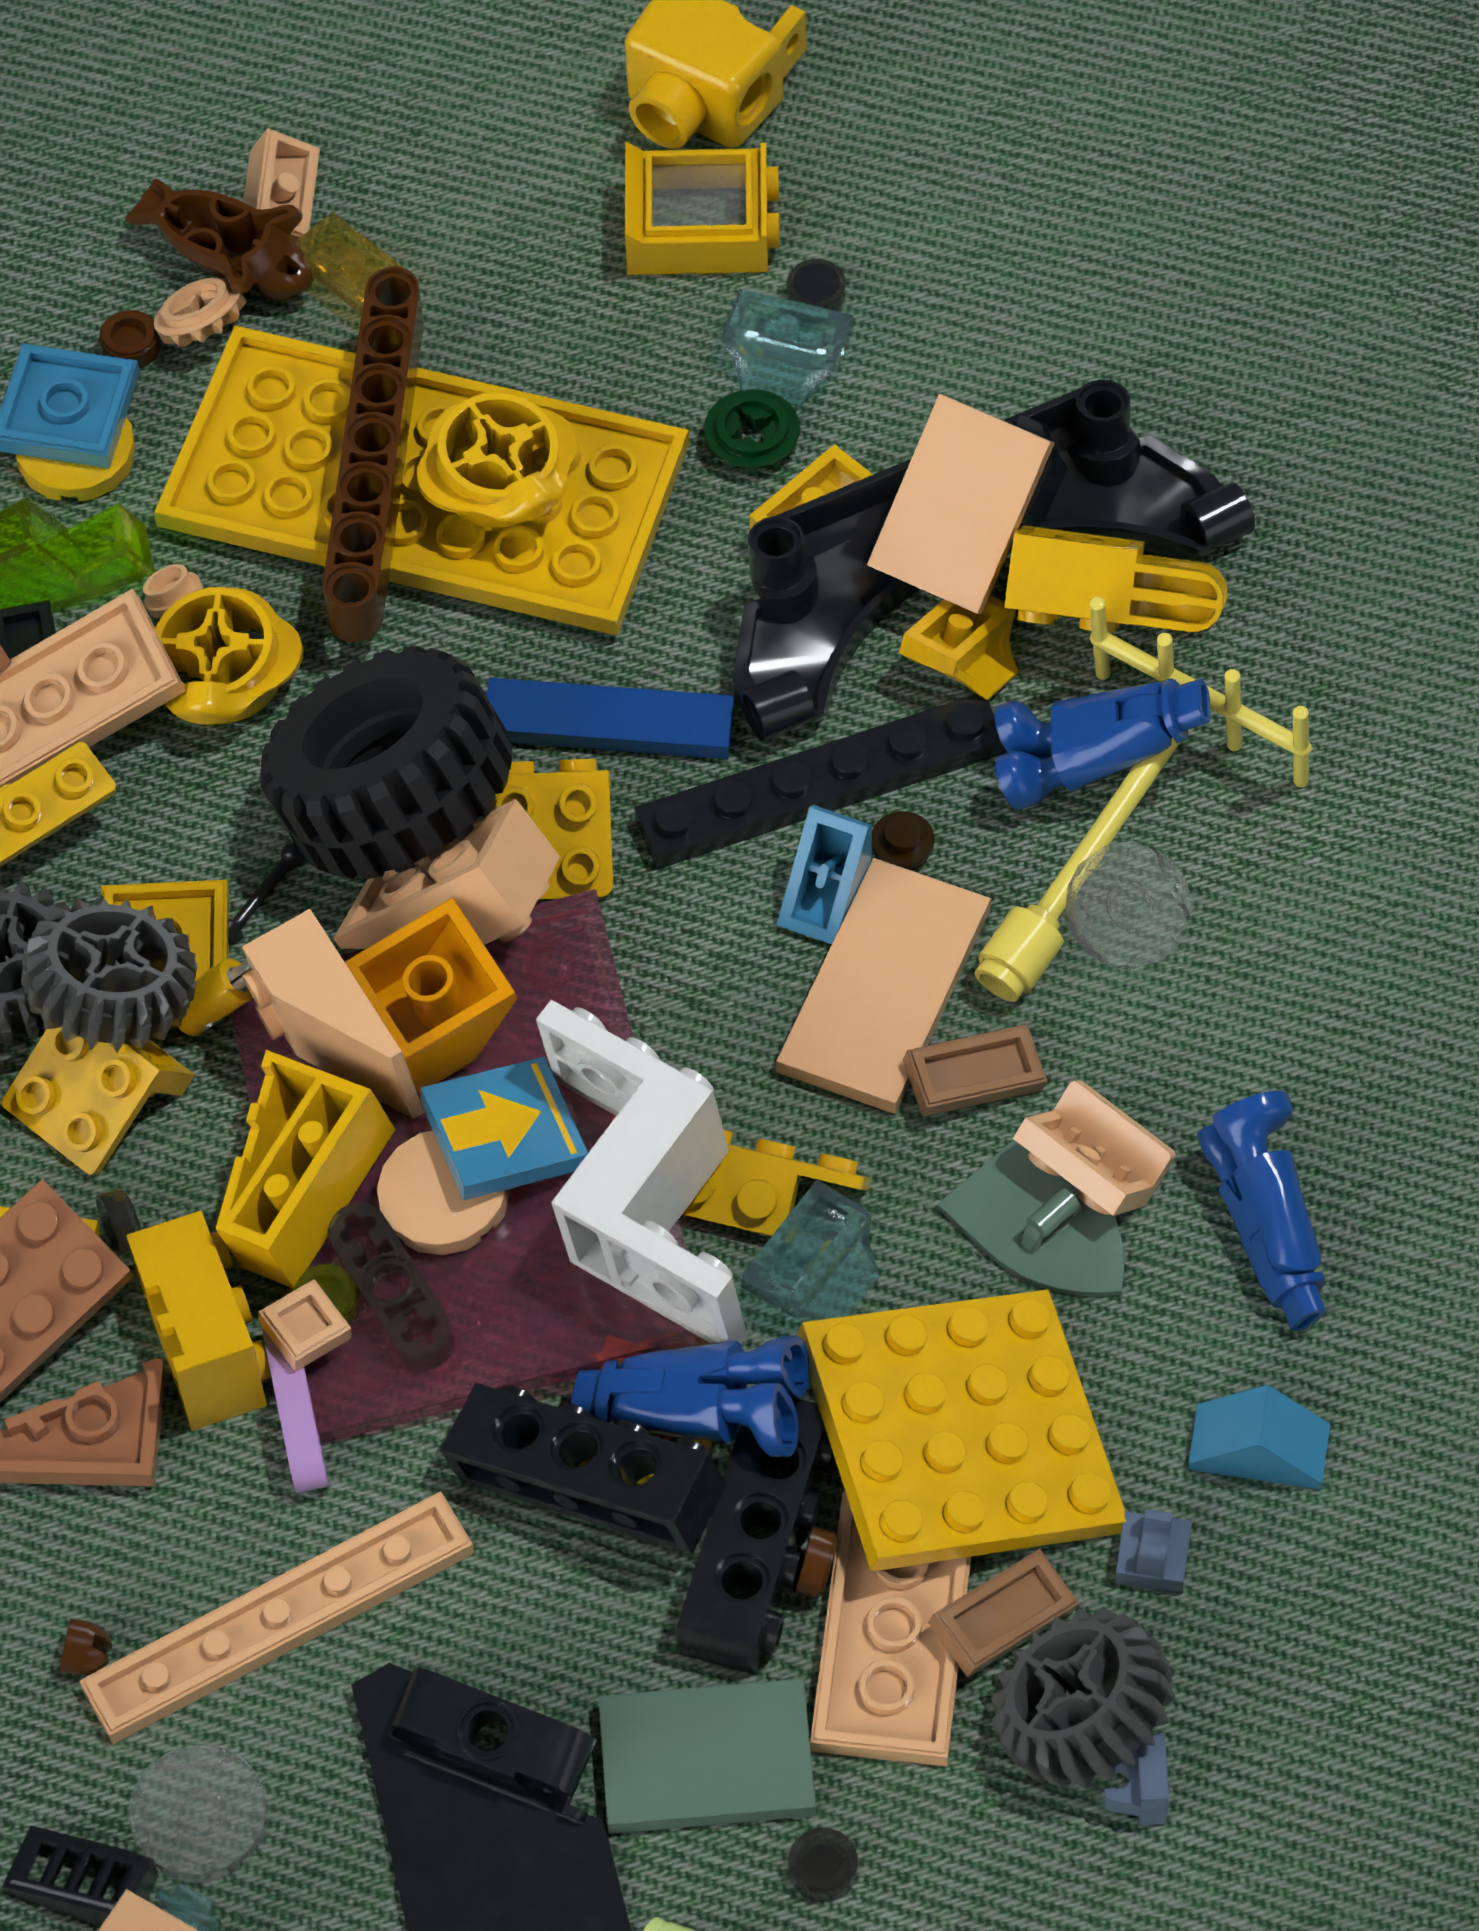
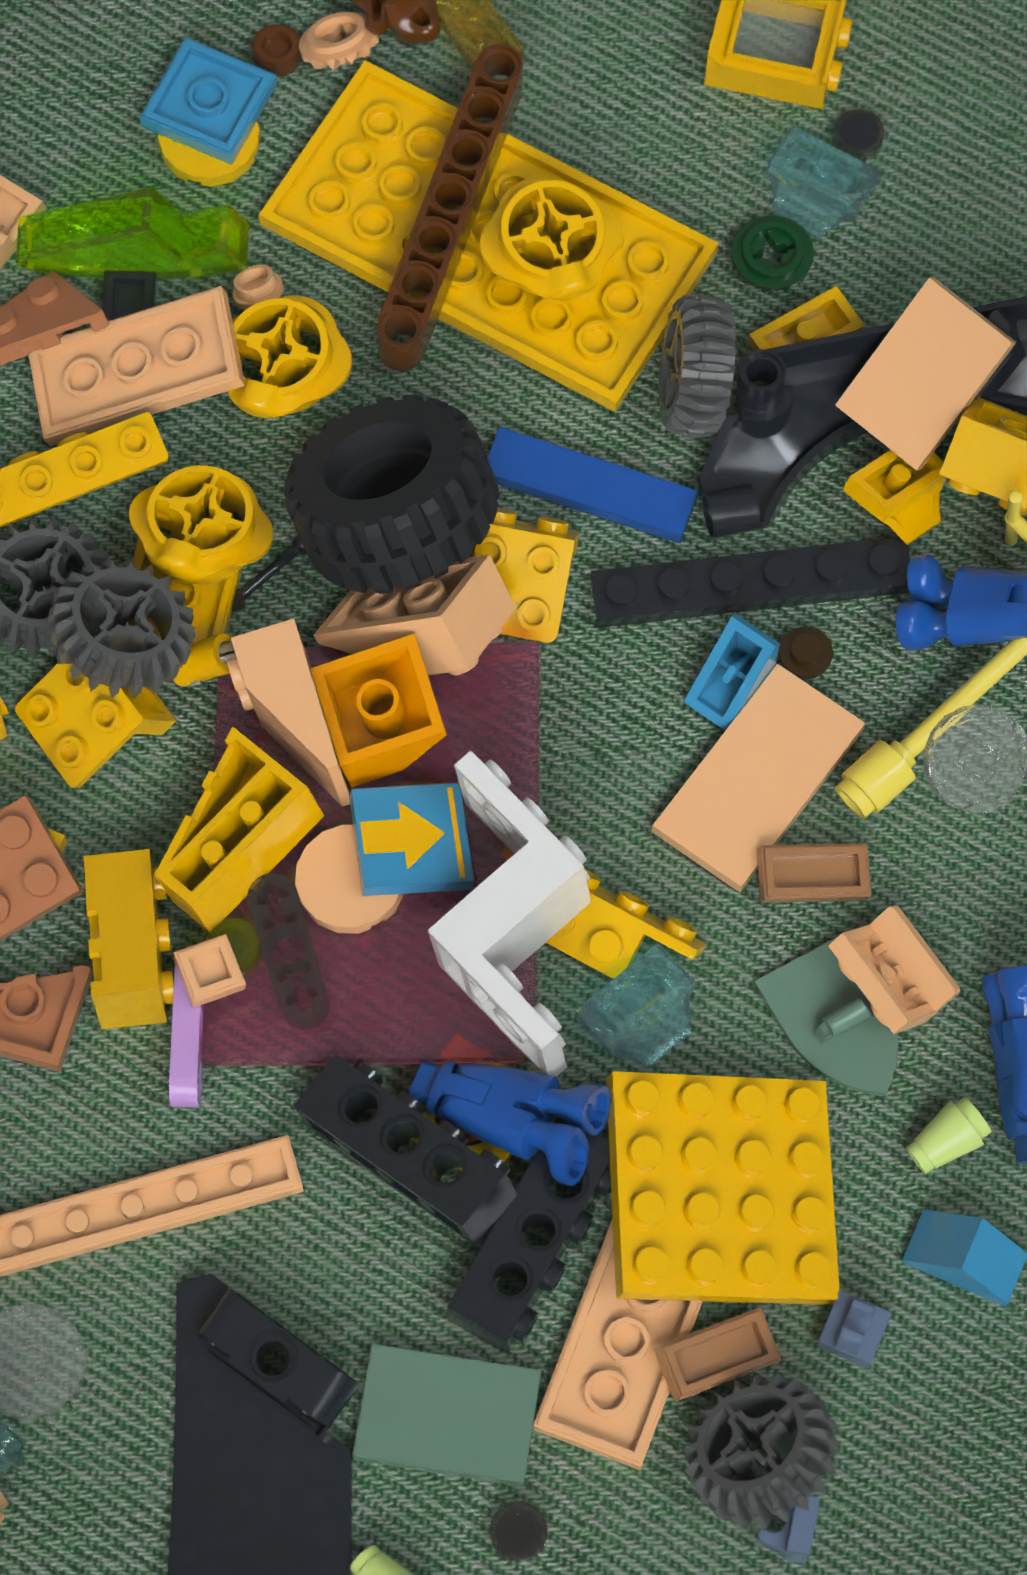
camera: 10 degrees right, 10 degrees up
(117, 1219) = (83, 835): clear smoke tile -> none
(172, 850) = (208, 547): none -> yellow piece
(699, 556) = (697, 366): none -> dark grey gear
(816, 1562) = (576, 1273): reddish brown tile -> none
(1206, 1314) = (949, 1135): none -> yellowish green cone

